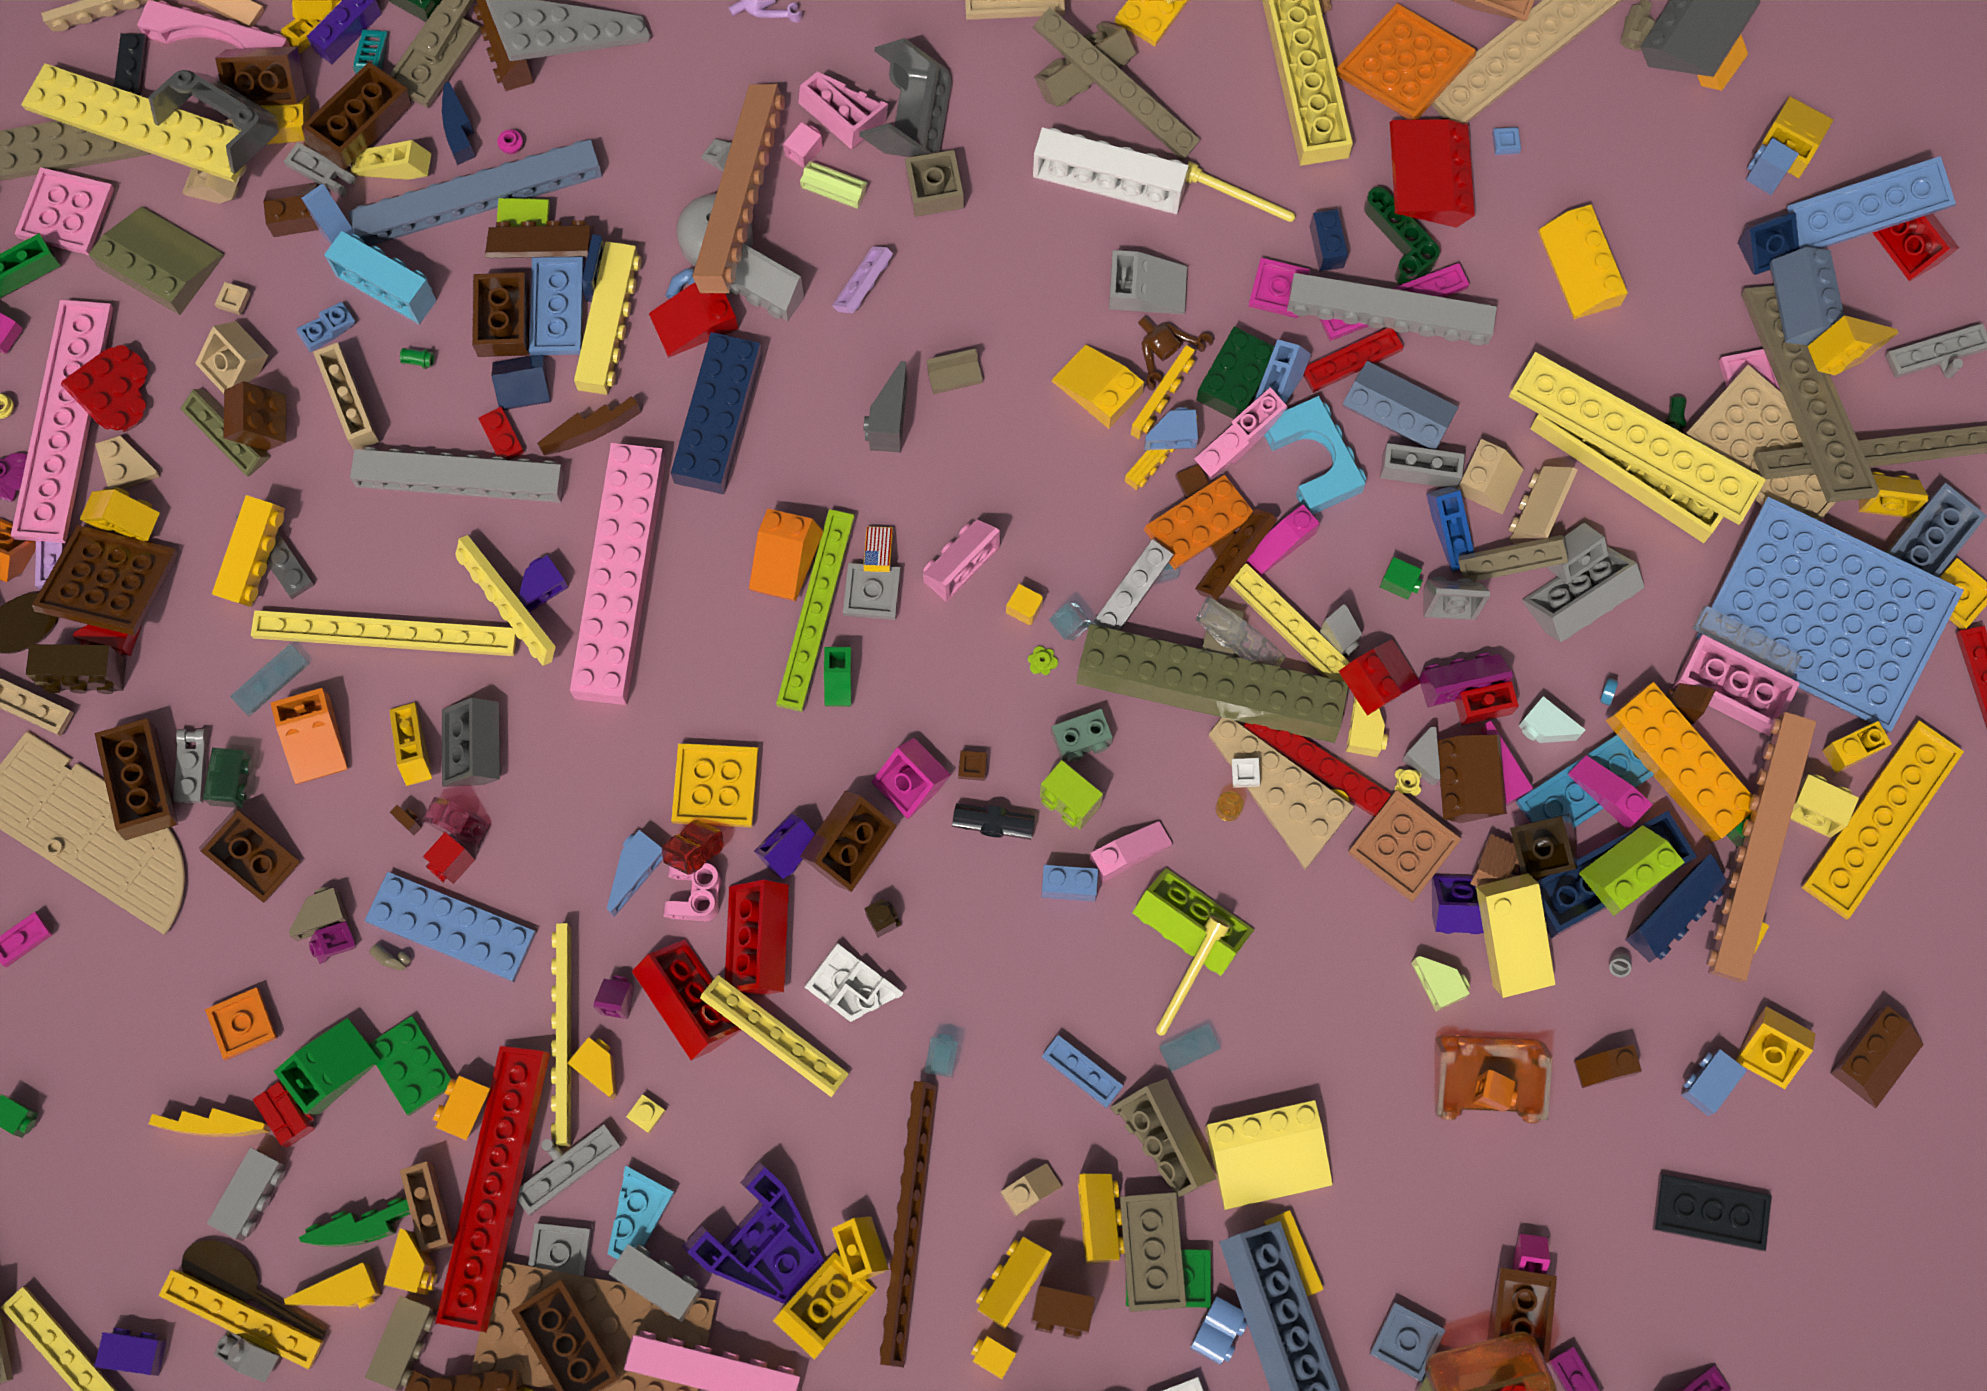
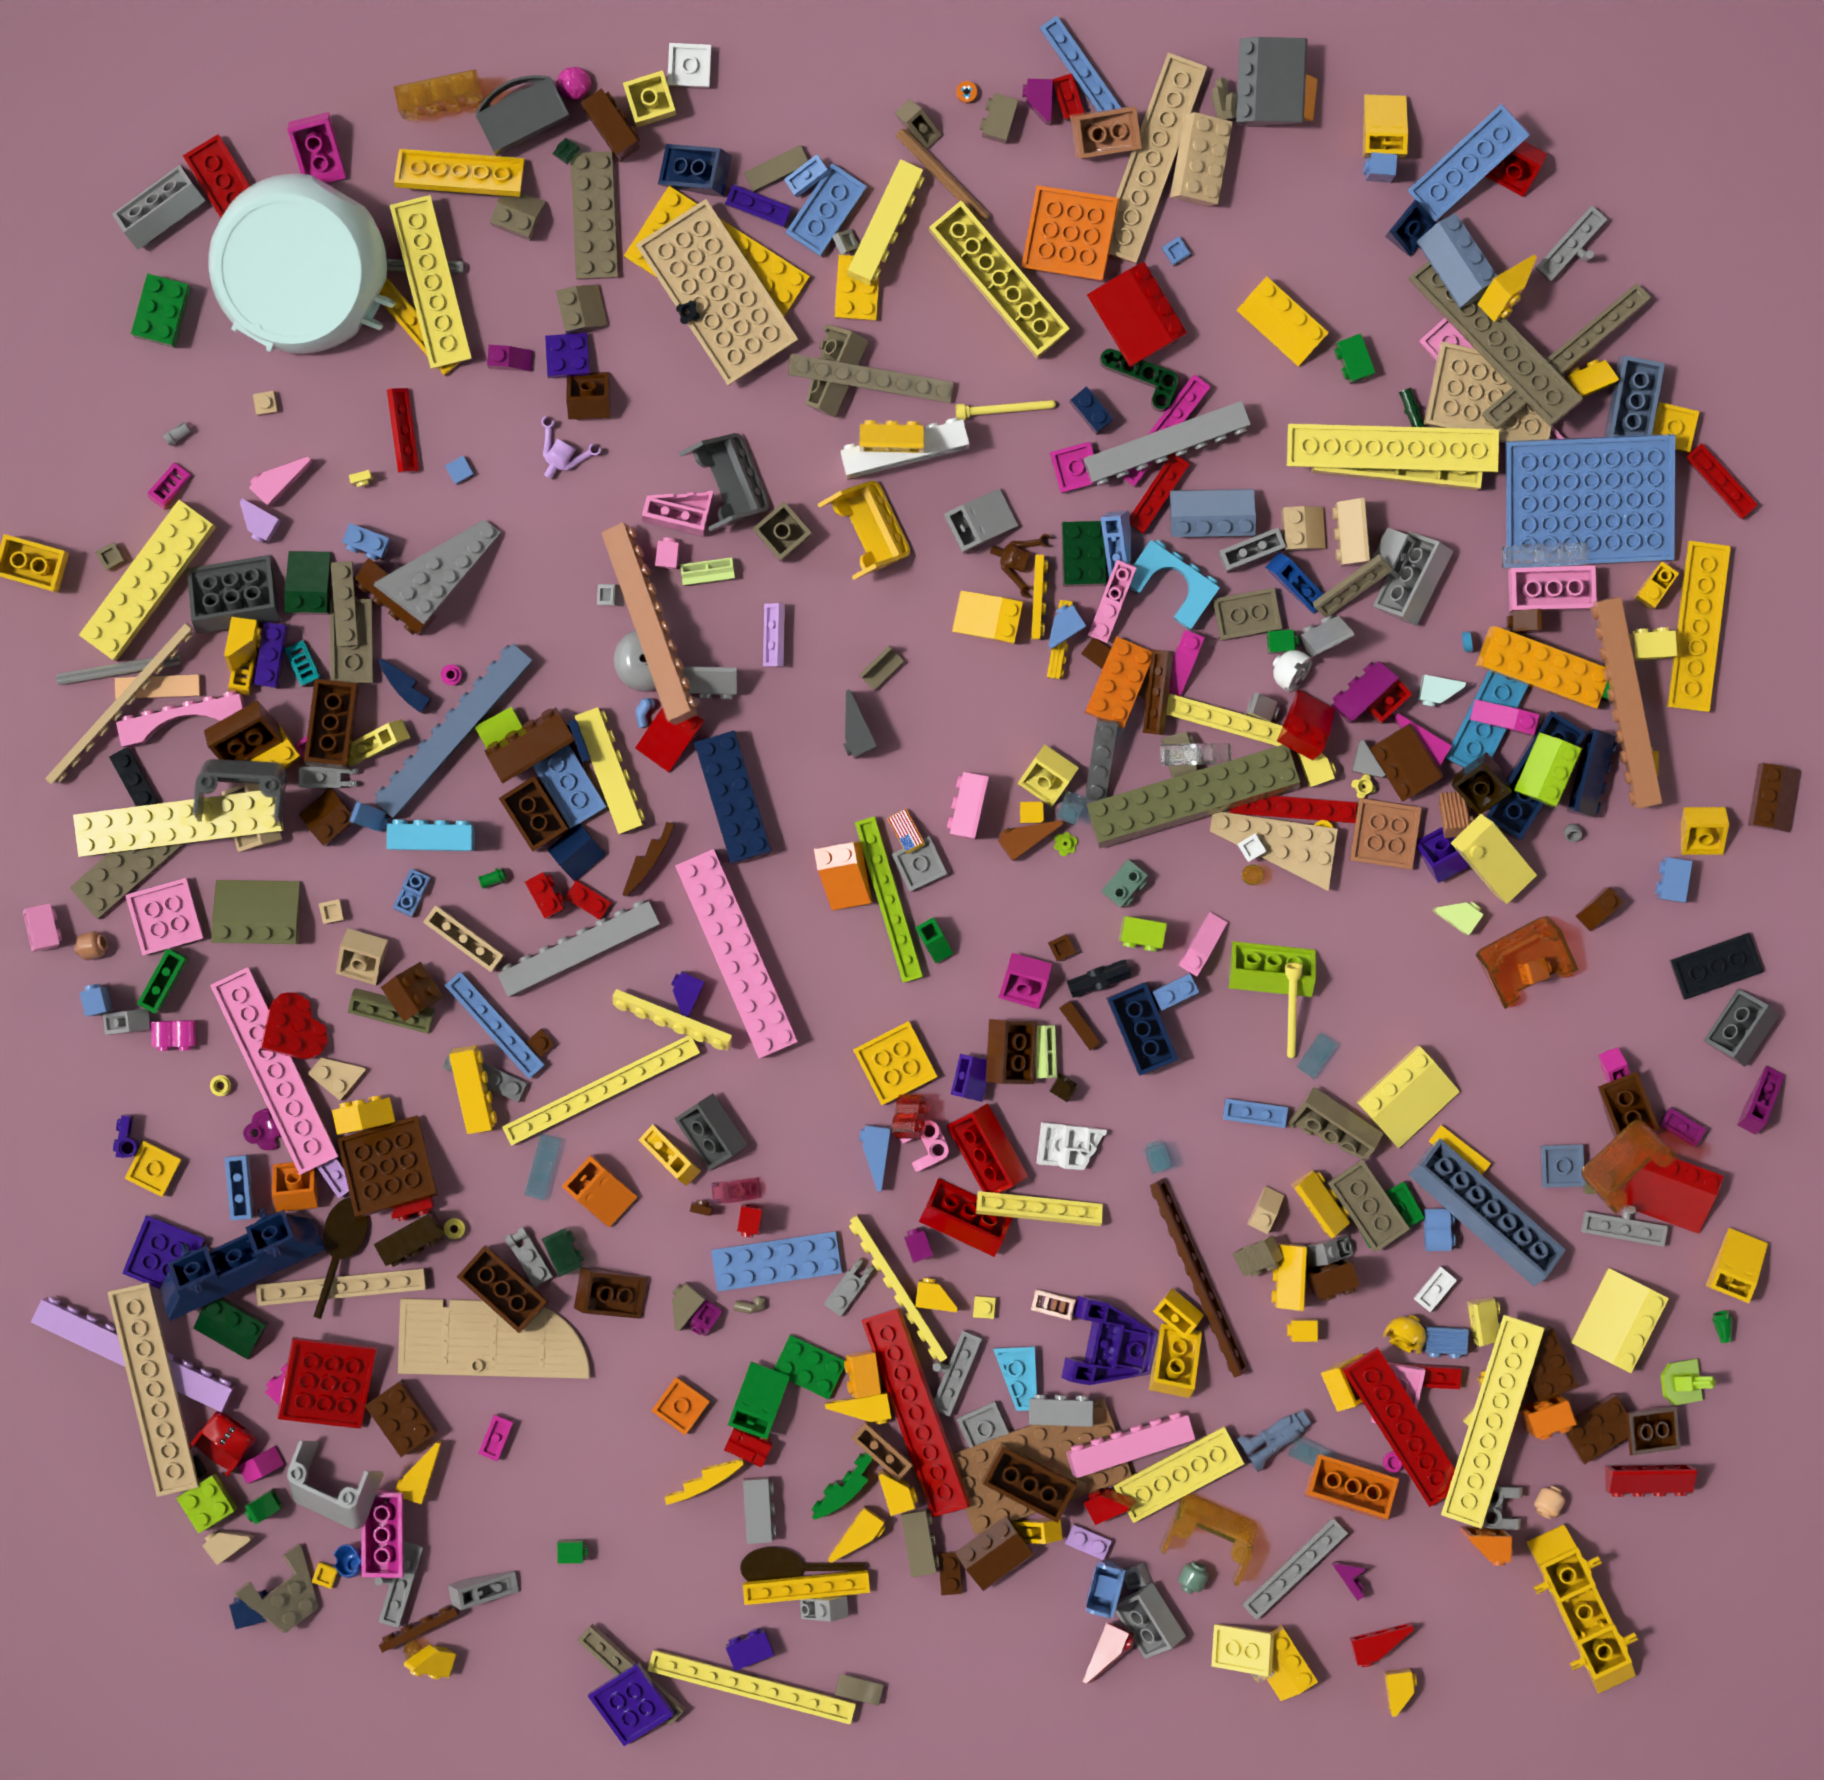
camera: 25 degrees left, 15 degrees up
(138, 694) = (461, 1228): none -> light yellow plate
(319, 504) = (494, 1025): none -> medium blue plate
(354, 550) = (540, 1043): none -> reddish brown plate
(442, 1149) = (869, 1408): none -> yellow slope
(458, 402) = (544, 894): none -> red brick
(508, 1003) = (847, 1289): none -> light grey hinge
(737, 1170) = (1061, 1314): none -> slope
(886, 867) = (1046, 1052): none -> yellowish green piece
(942, 861) = (1079, 1025): none -> reddish brown piece
(990, 1235) = (1258, 1256): none -> dark tan brick
(1001, 627) = (1022, 838): none -> dark orange slope
(1008, 901) = (1141, 1028): none -> dark blue brick
(1035, 224) = (873, 523): none -> yellow windscreen
(1065, 576) = (1048, 775): none -> light yellow slope
(1076, 1279) = (1329, 1251): none -> light grey slope
(1101, 137) = (891, 437): none -> yellow slope
(1379, 530) = (1247, 614): none -> dark tan plate
(1396, 612) = (1290, 669): none -> white cylinder
(1583, 63) = (1201, 159): none -> tan brick
(1640, 339) = (1354, 359): none -> green brick
(1708, 1301) = (1741, 1027): none -> dark grey slope

